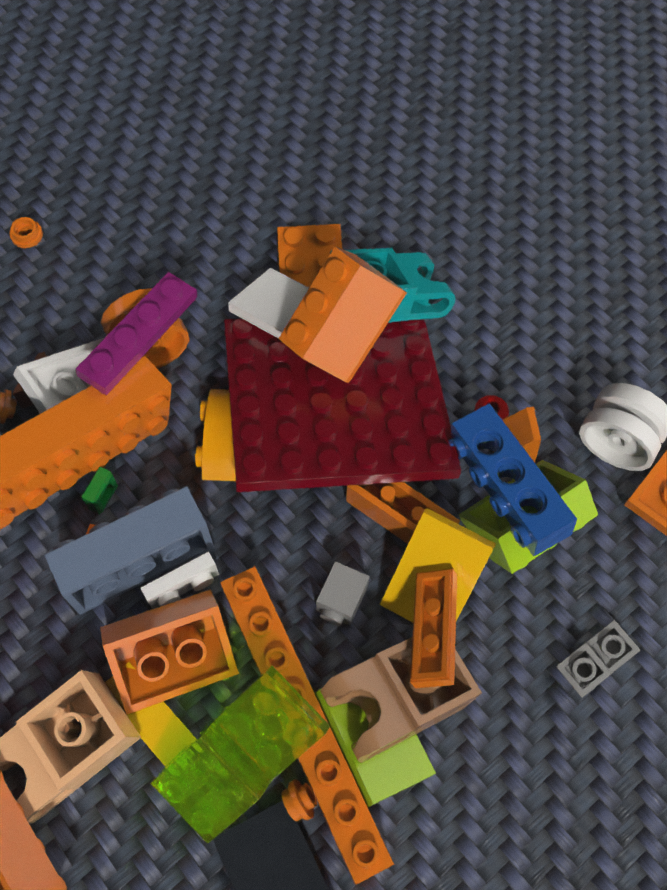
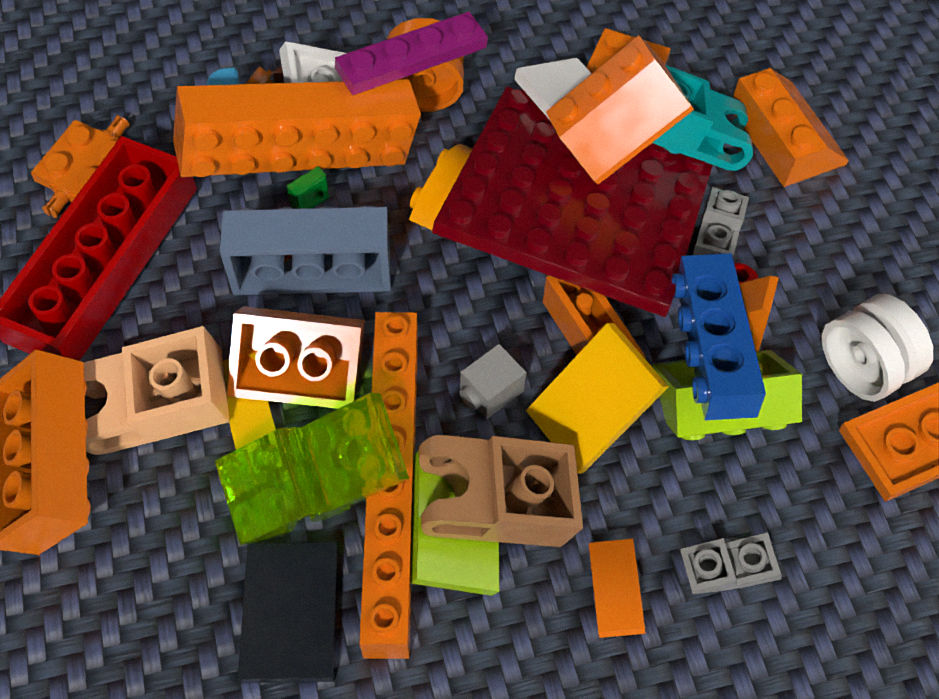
camera: 25 degrees right, 5 degrees down
(192, 575) = (341, 300): white plate -> none
(299, 800) = (347, 549): orange plate -> none
(434, 629) = (562, 440): orange tile -> none
(454, 369) = (721, 223): none -> light grey slope
(466, 259) = (786, 128): none -> orange slope
(525, 724) = (616, 588): none -> orange slope

